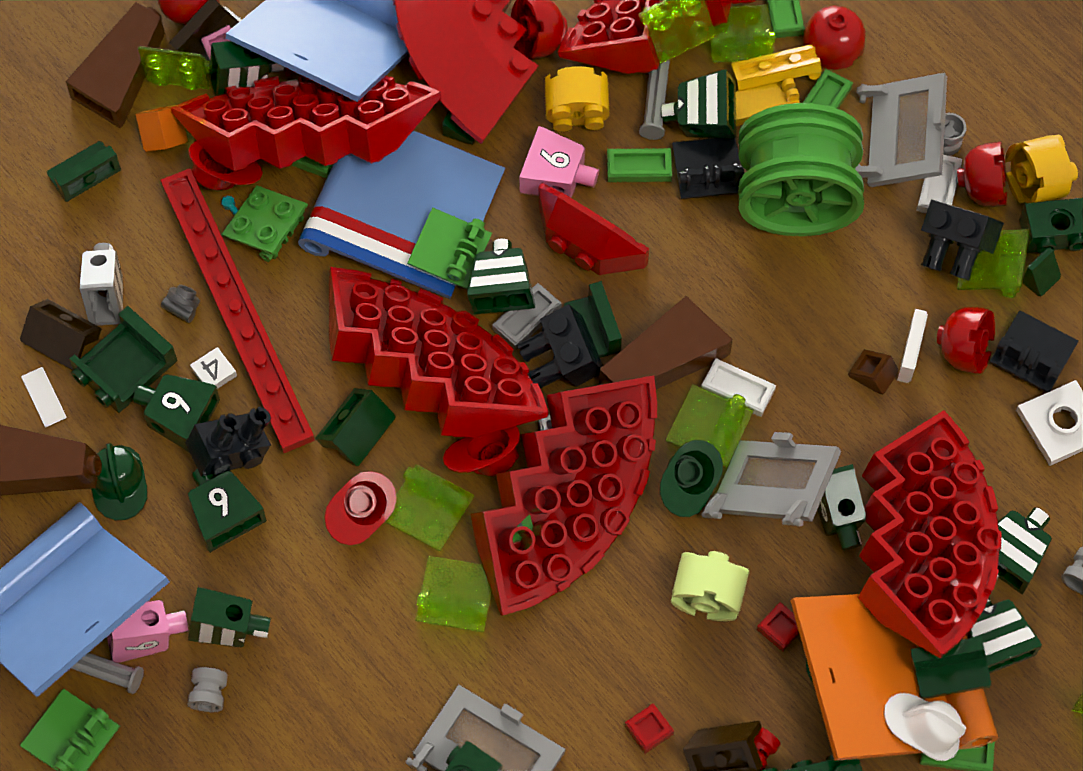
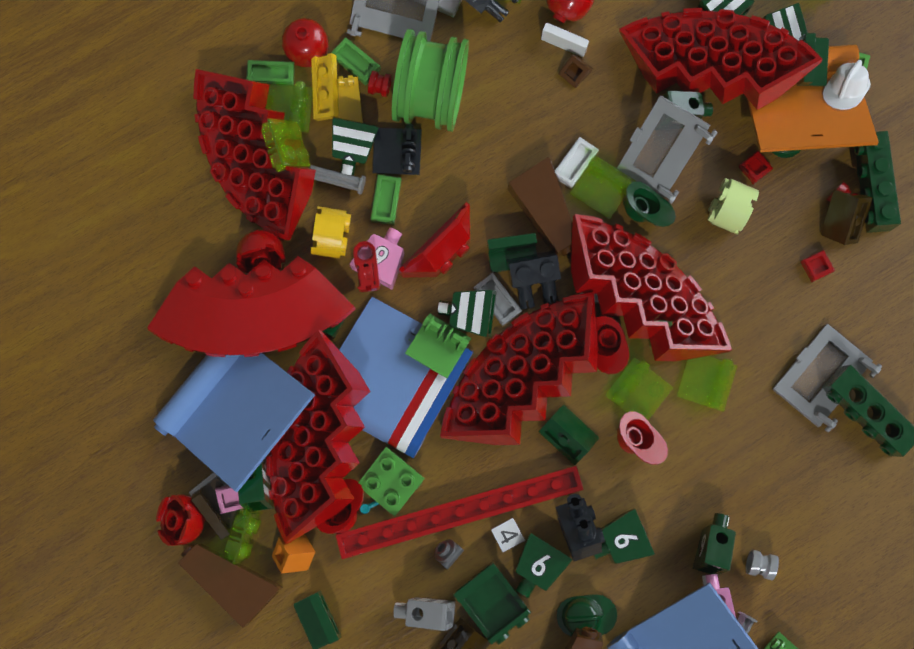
camera: 80 degrees left, 15 degrees up
(533, 144) = (367, 269): none -> red piece

